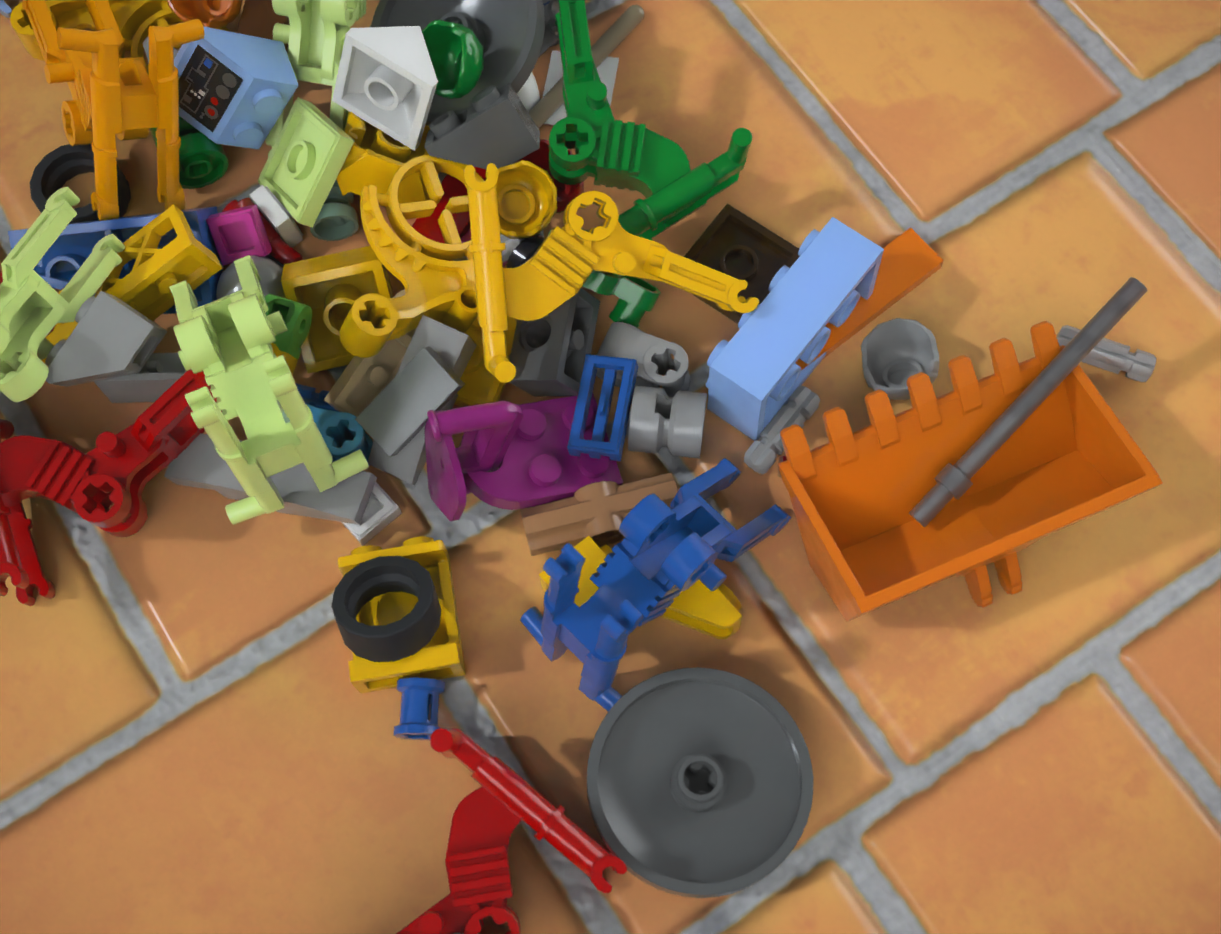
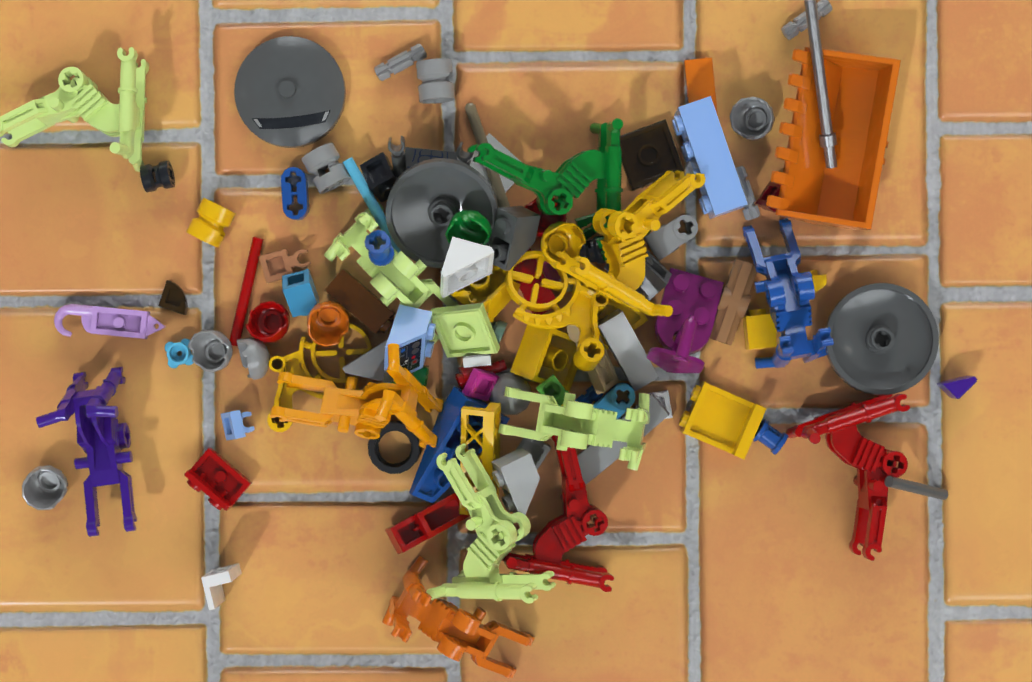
camera: 55 degrees left, 20 degrees up
(395, 639) = (702, 430): black tyre -> none
(403, 404) = (633, 357): dark grey tile -> none
(597, 446) = (707, 287): blue tile -> none
(667, 422) = (718, 237): light grey wheel -> none

